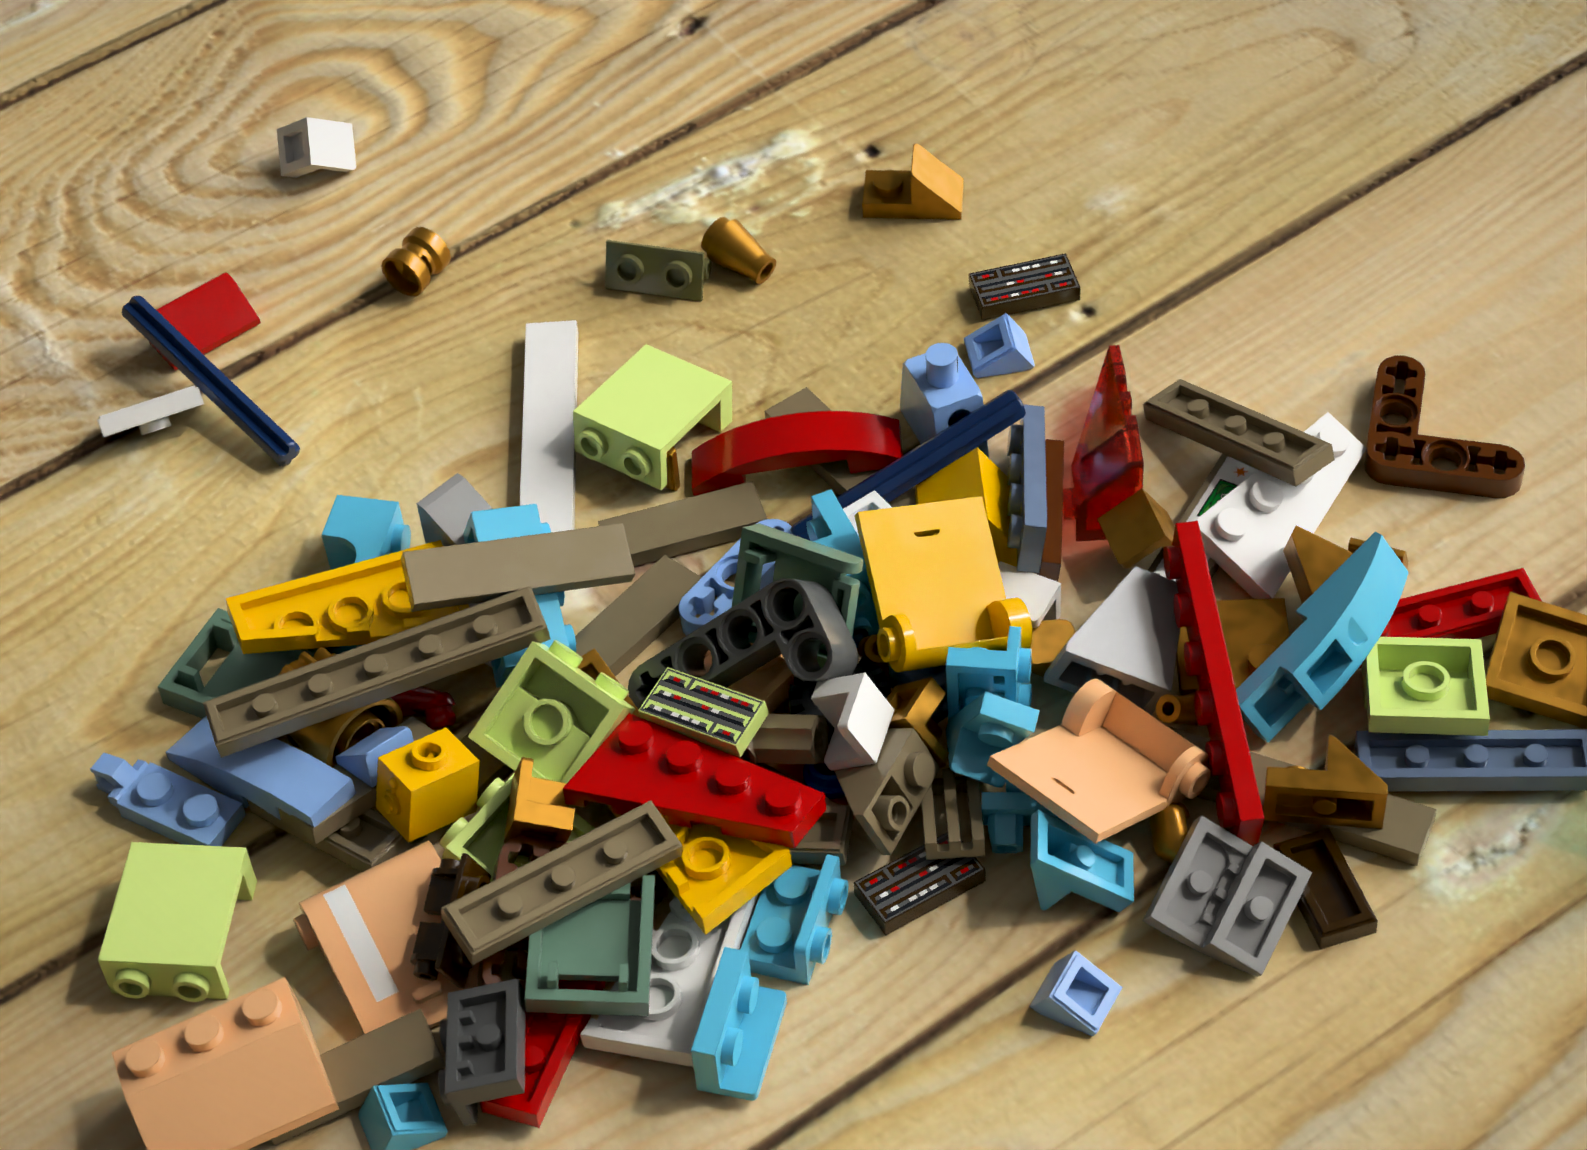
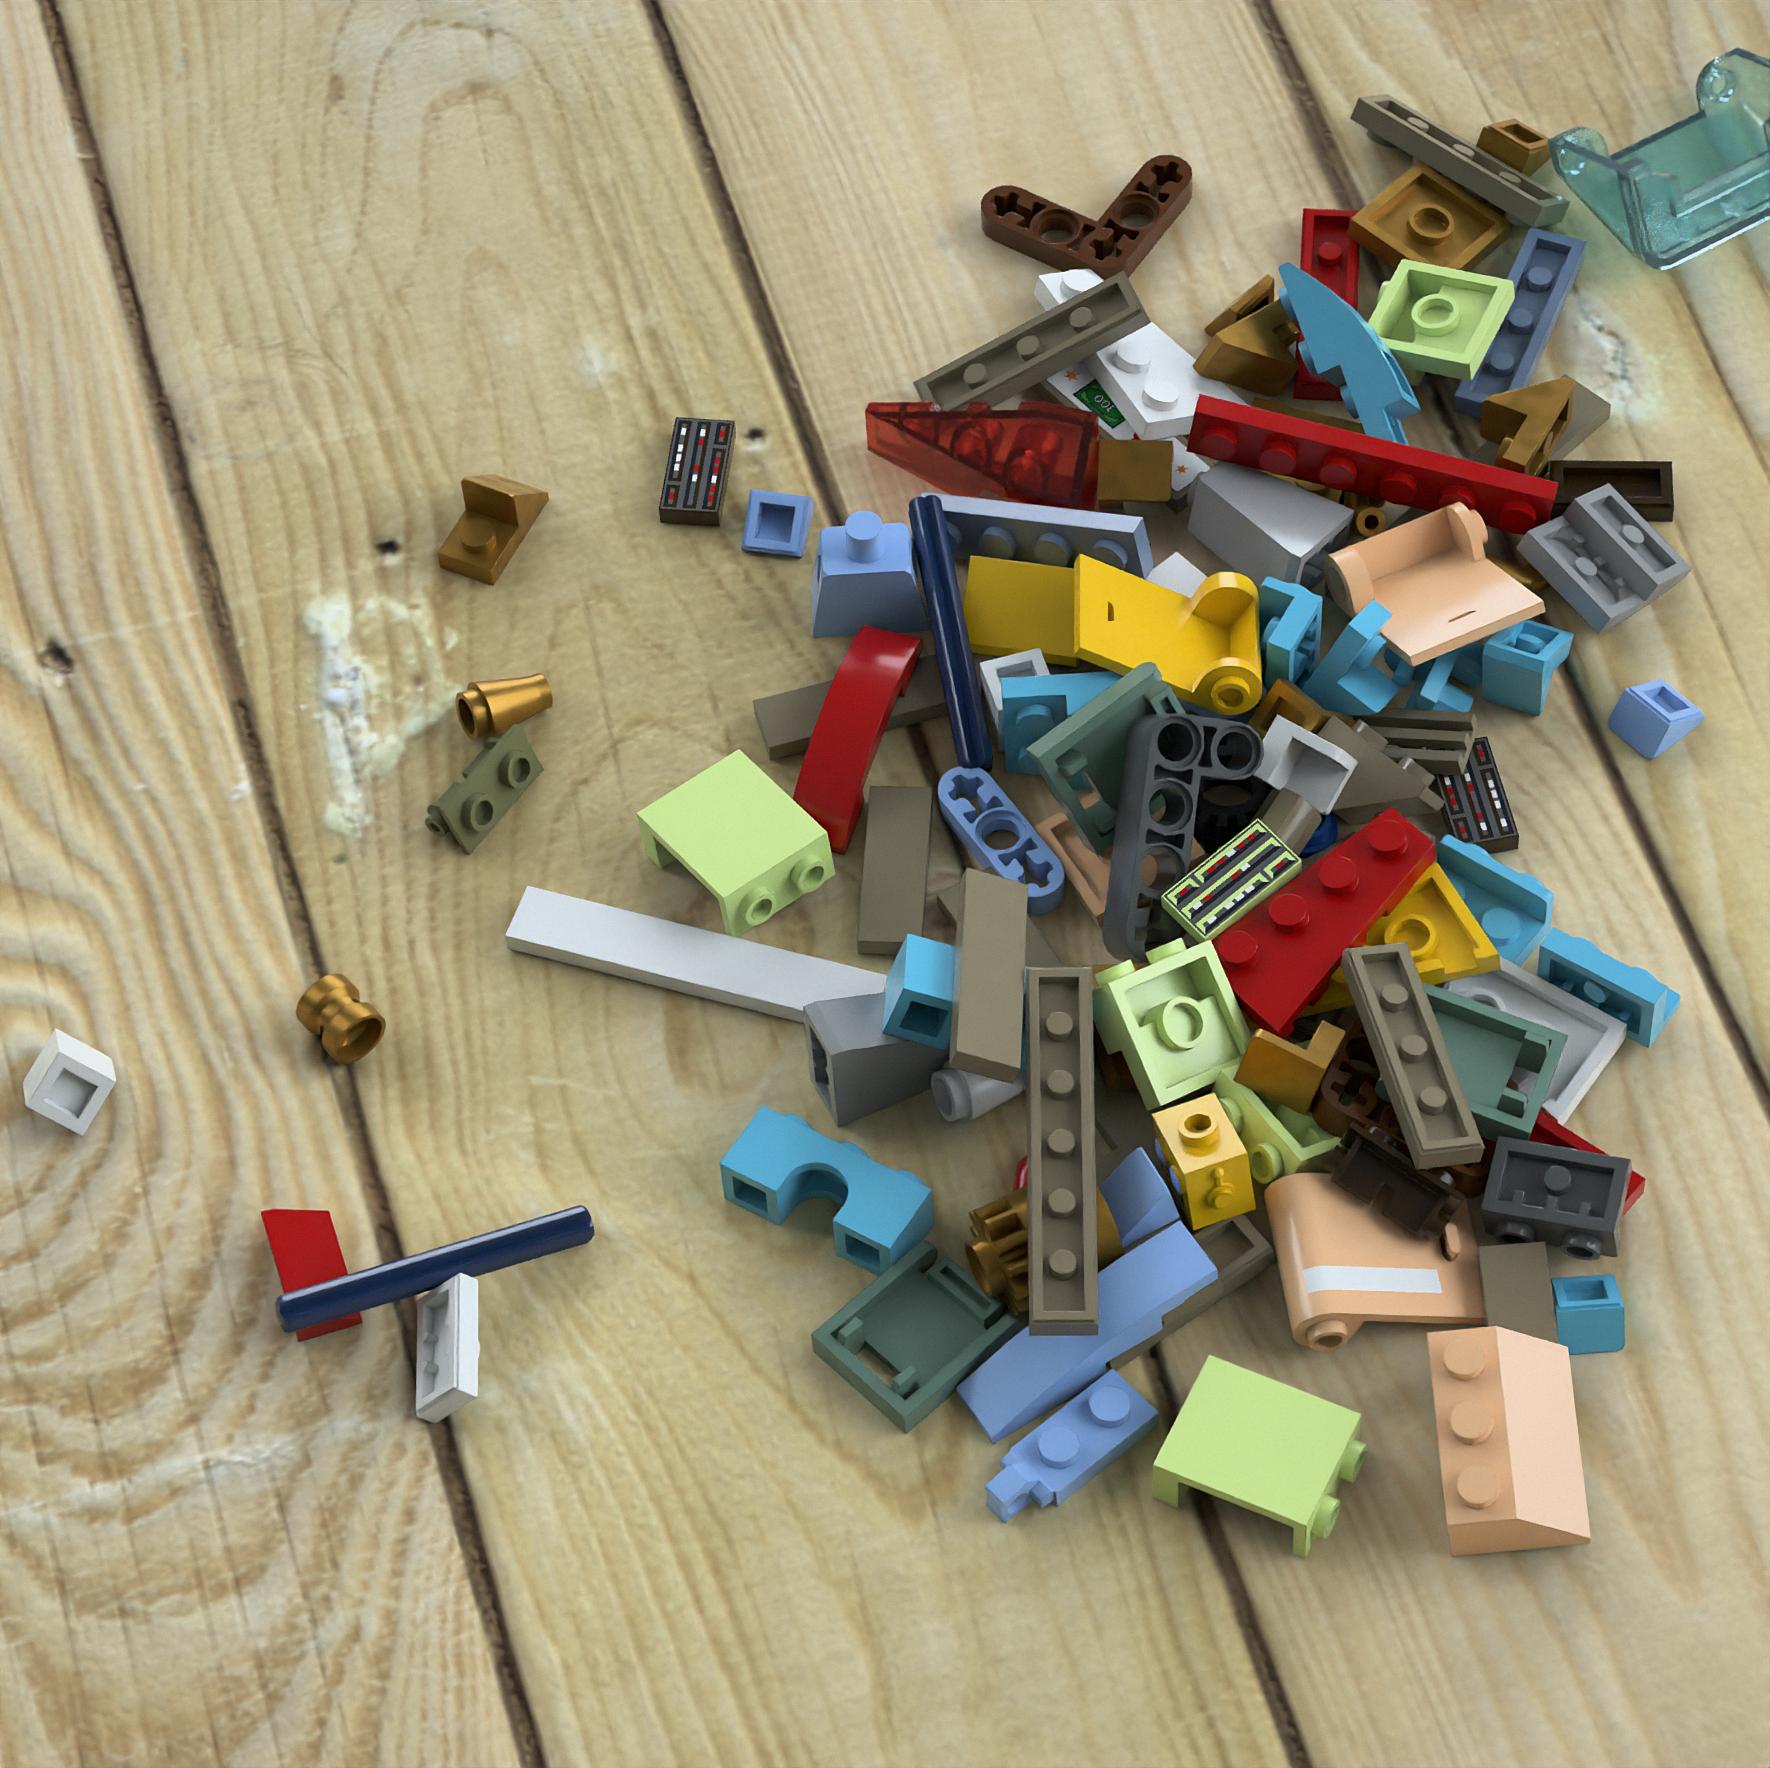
camera: 70 degrees left, 5 degrees up
(330, 608) = (923, 1160): yellow wing -> none

